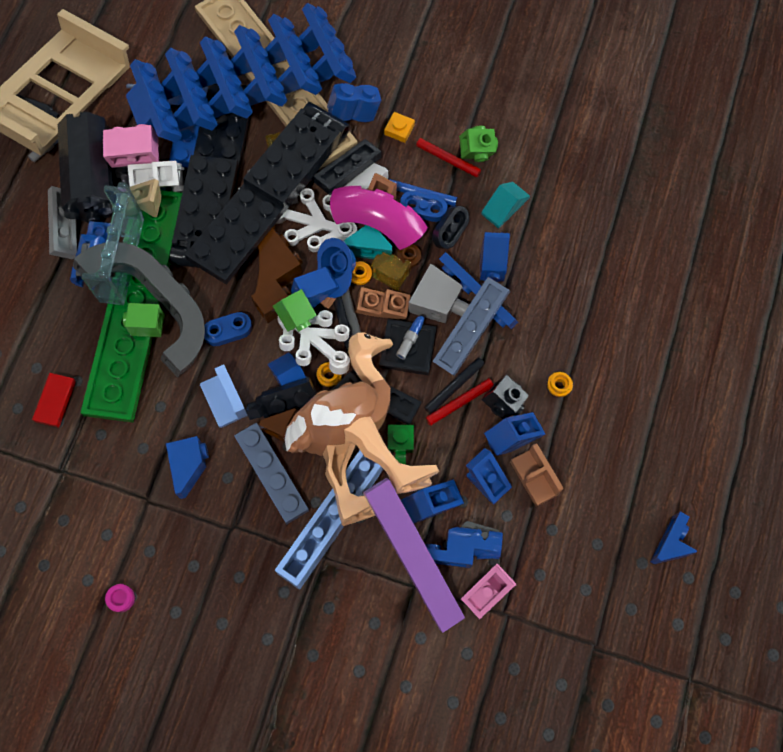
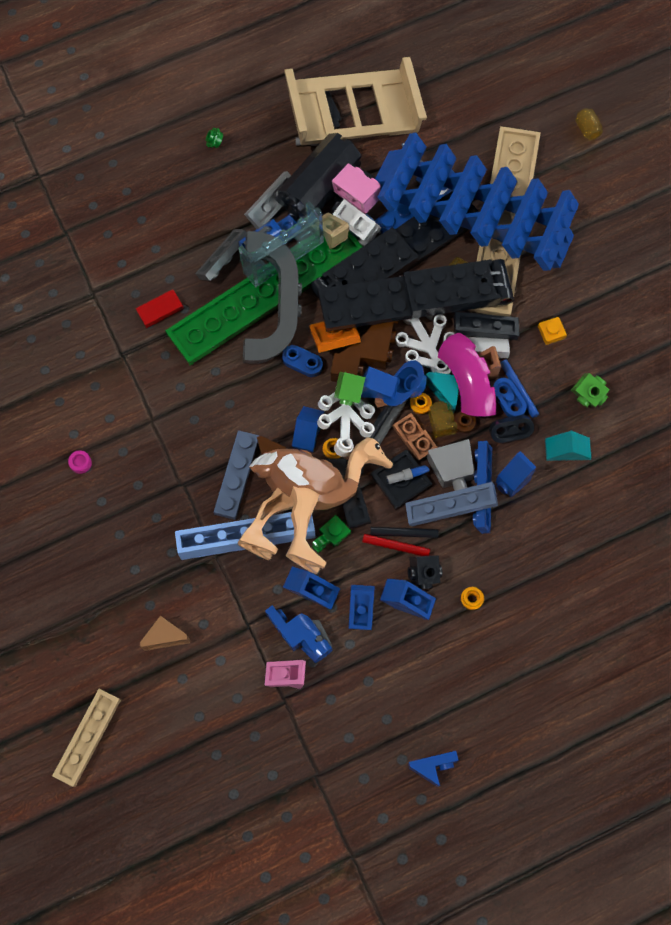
camera: 50 degrees right, 0 degrees up
(64, 306) = (221, 256): none -> dark grey plate
(144, 320) = (255, 308): bright green brick -> none
(186, 463) = (193, 420): blue slope -> none
(223, 398) = (256, 401): light blue panel -> none
(237, 287) = (333, 339): none -> orange tile
(281, 399) = (287, 435): black hinge -> none
(354, 102) = (534, 286): blue brick -> none
(354, 666) = (163, 635): none -> medium nougat slope
(414, 554) = (261, 604): medium lavender tile -> none
(448, 157) = (569, 401): red bar -> none
(537, 475) = (392, 638): nougat panel -> none

